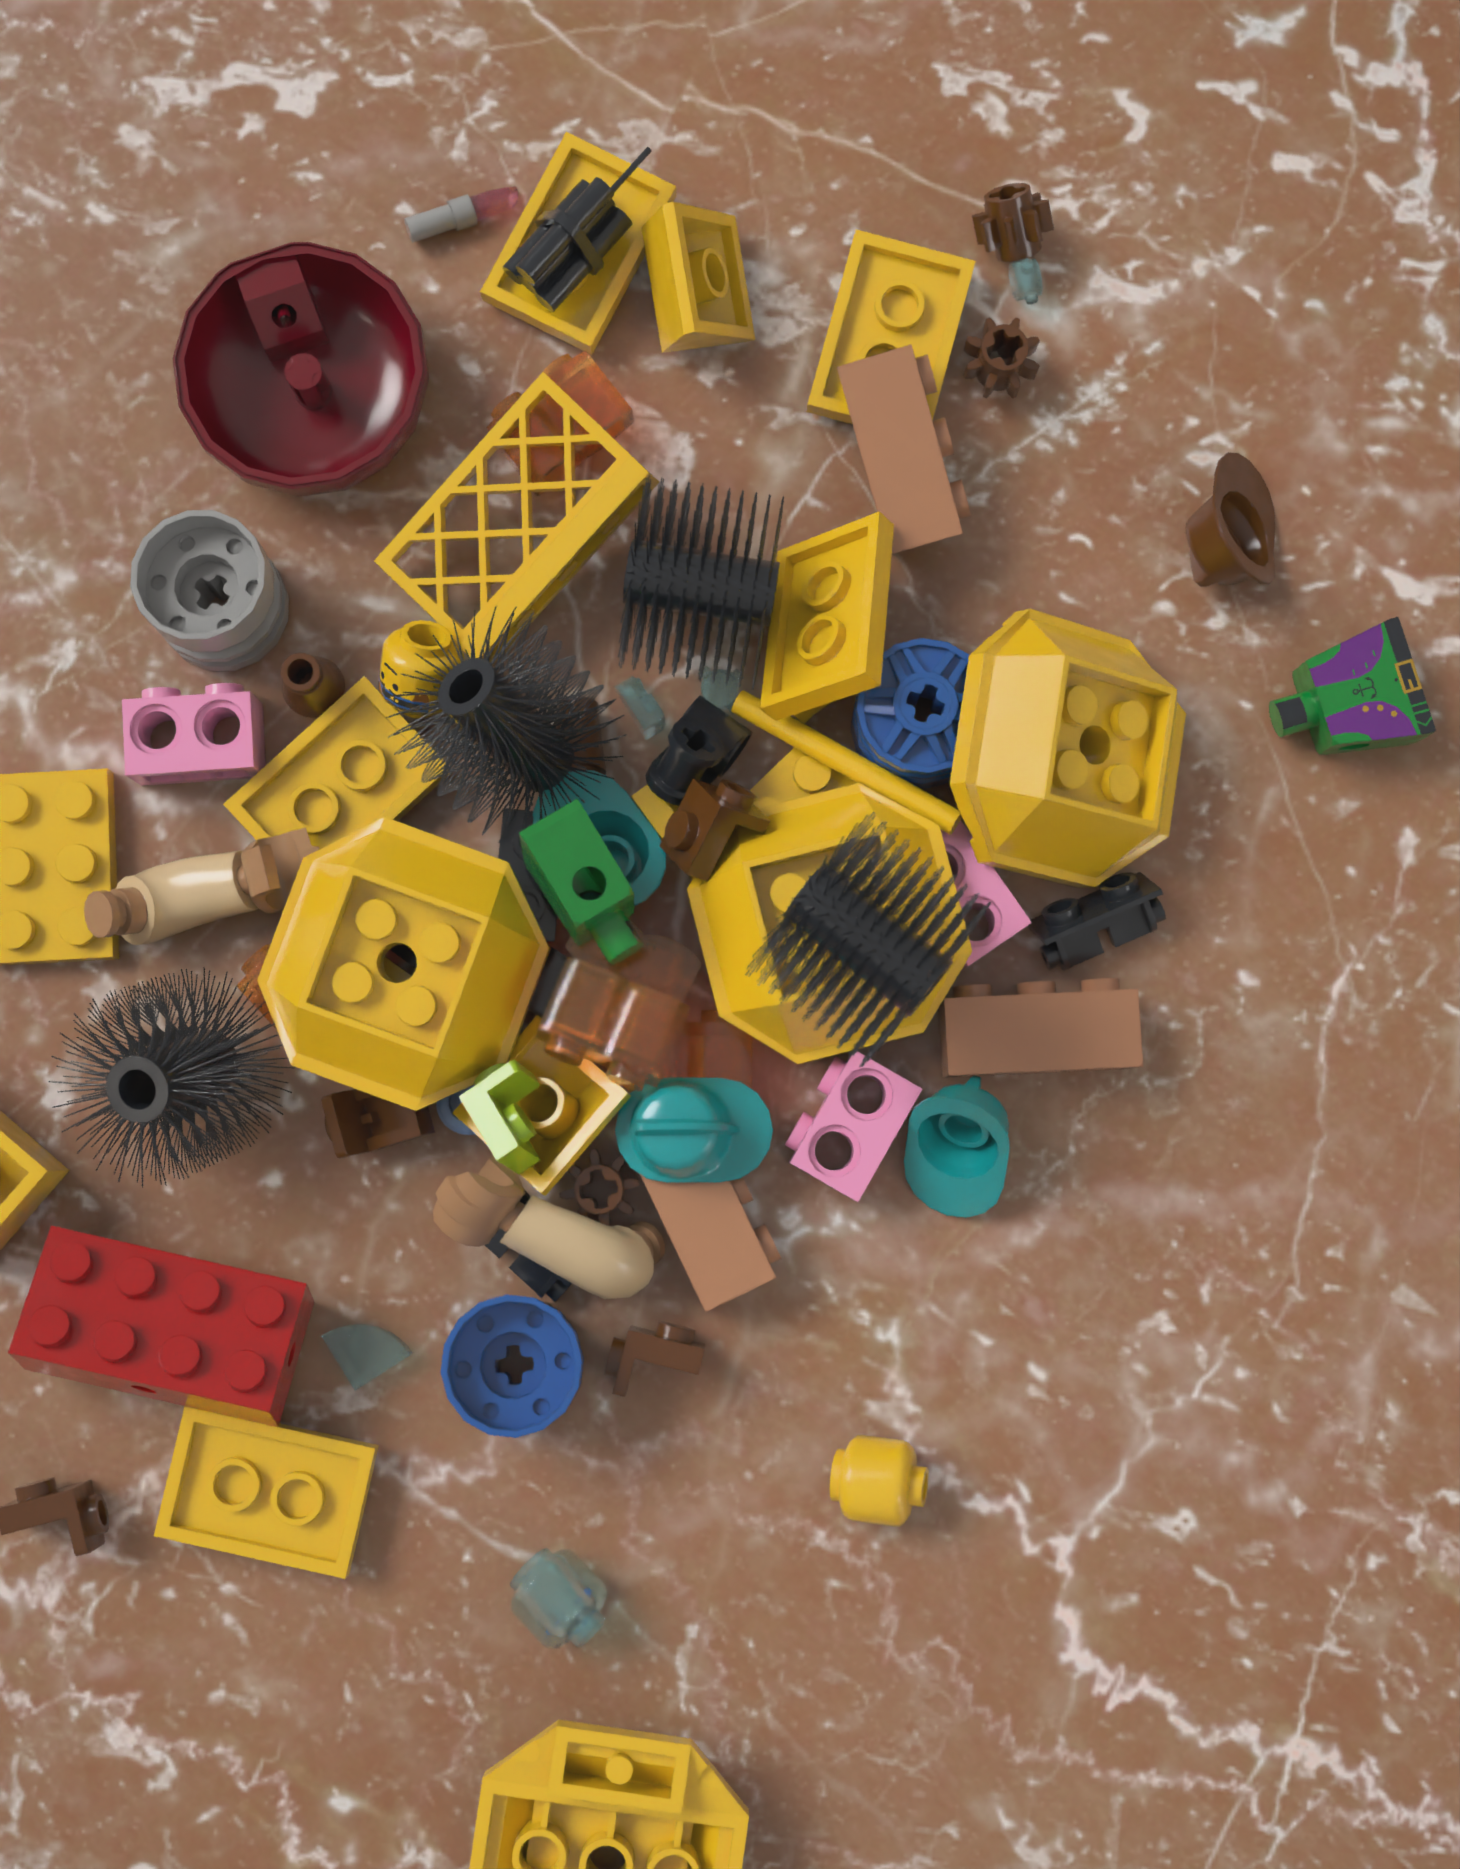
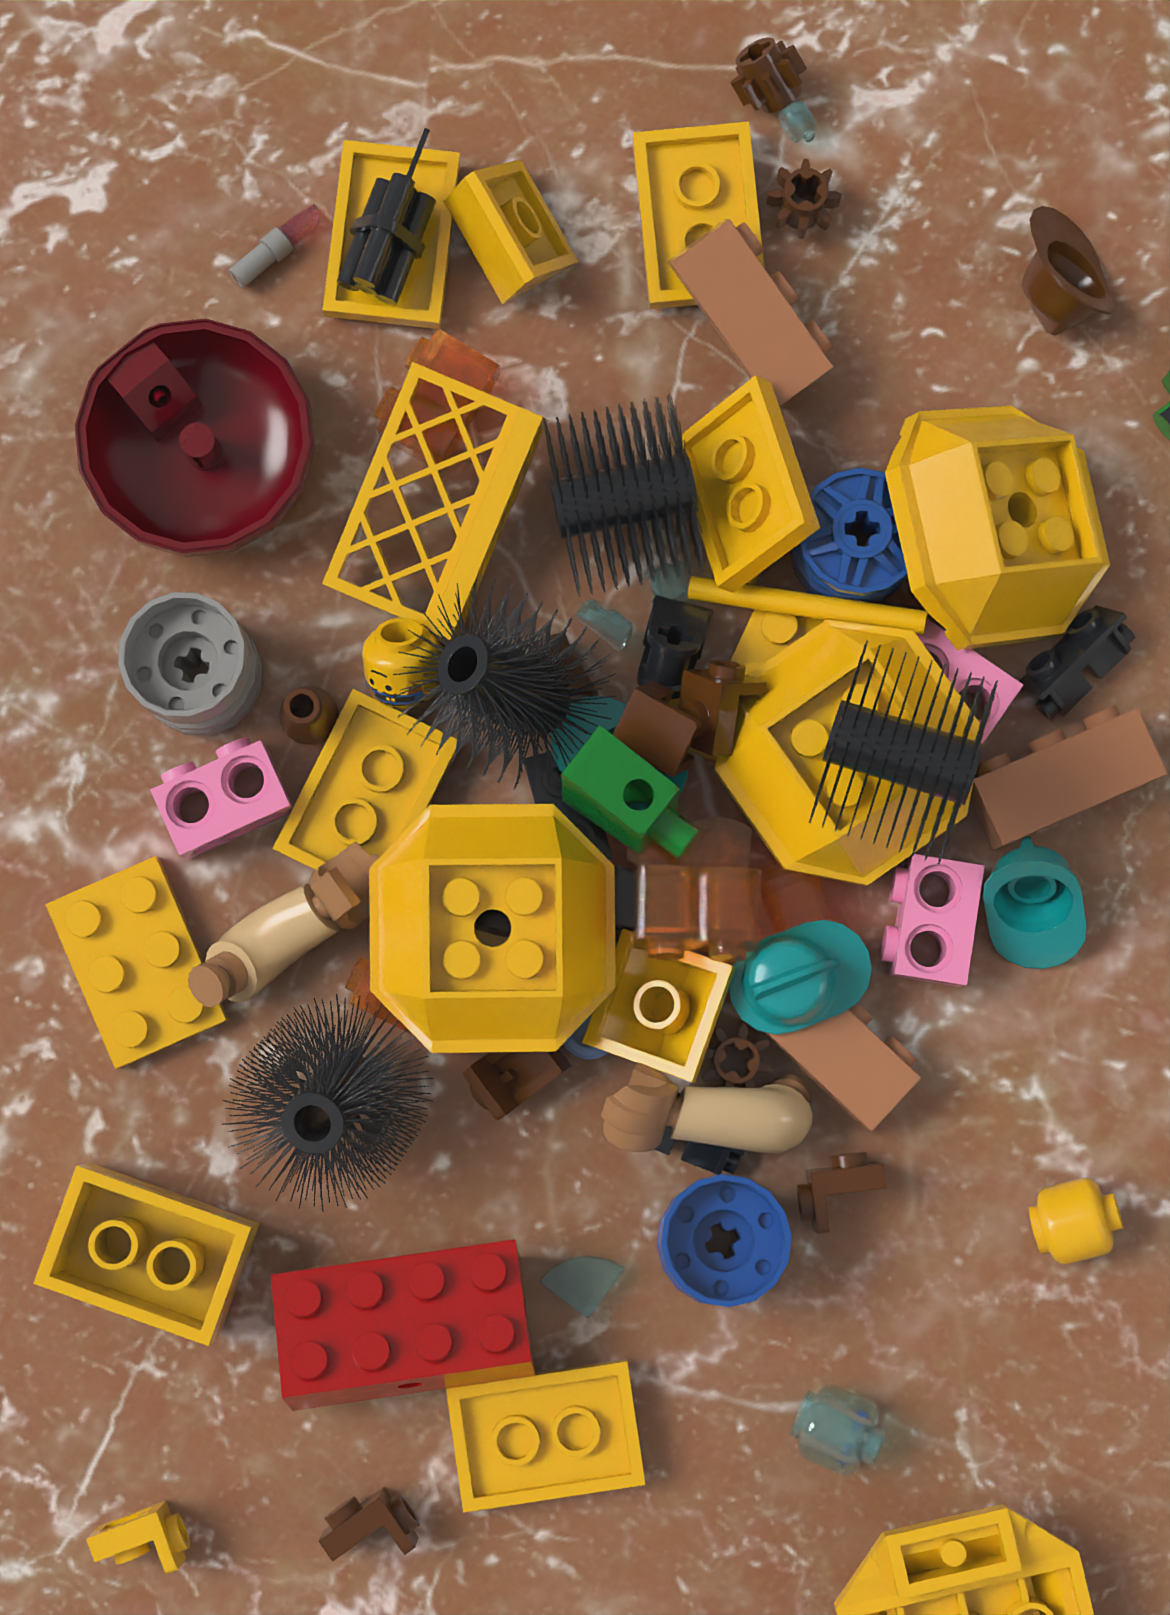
camera: 20 degrees left, 0 degrees up
(498, 1116) = (639, 1035): lime bracket -> none
(640, 827) = (657, 729): none -> reddish brown panel

